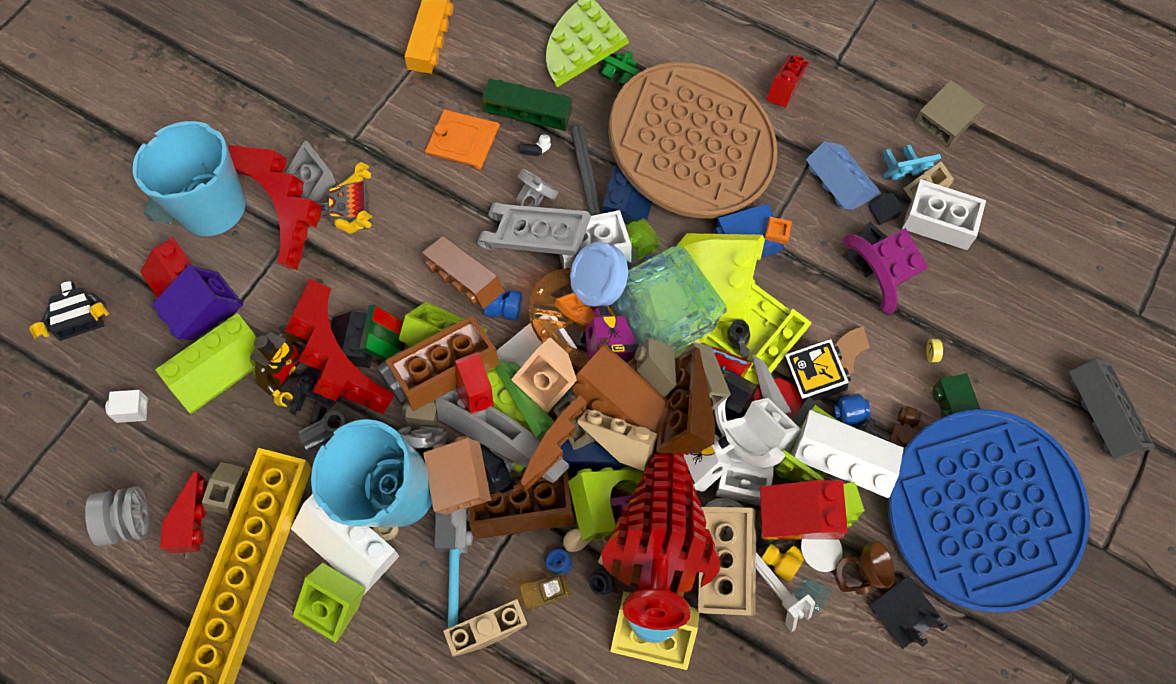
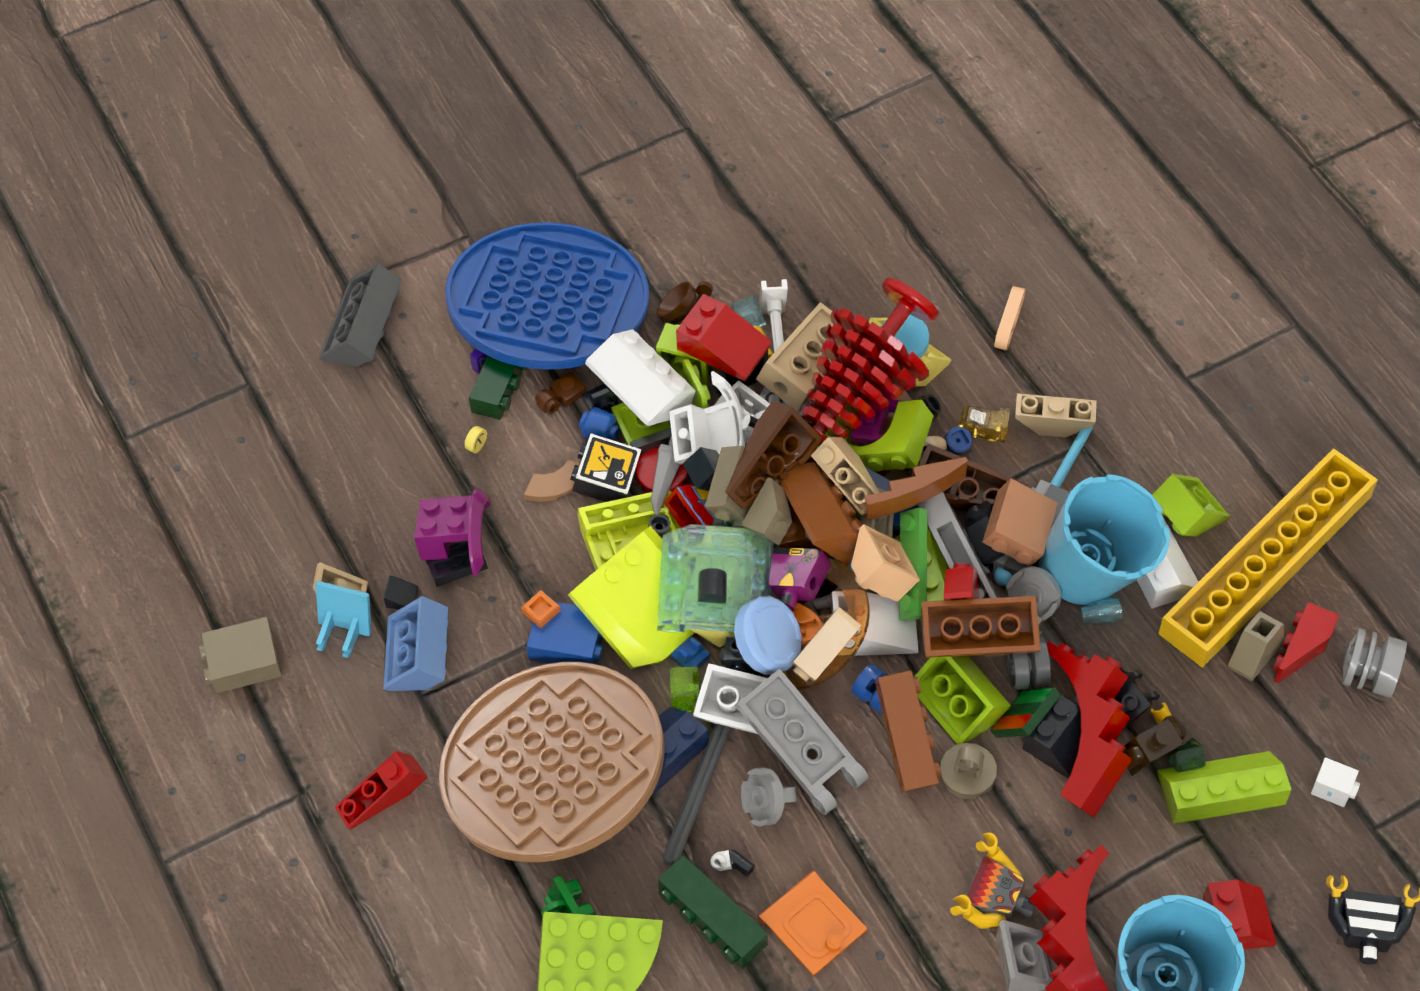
camera: 145 degrees left, 10 degrees down
(196, 302) = (1217, 853): dark purple slope -> none
(245, 369) = (1188, 756): none -> clear green slope
(321, 431) = (1130, 656): dark grey piece -> none
(409, 285) = (968, 770): none -> dark tan tile
(548, 284) = (825, 645): none -> tan slope
(659, 279) = (712, 586): none -> black brick
(907, 613) = (676, 266): black plate -> none
(944, 214) = (354, 546): white slope -> none

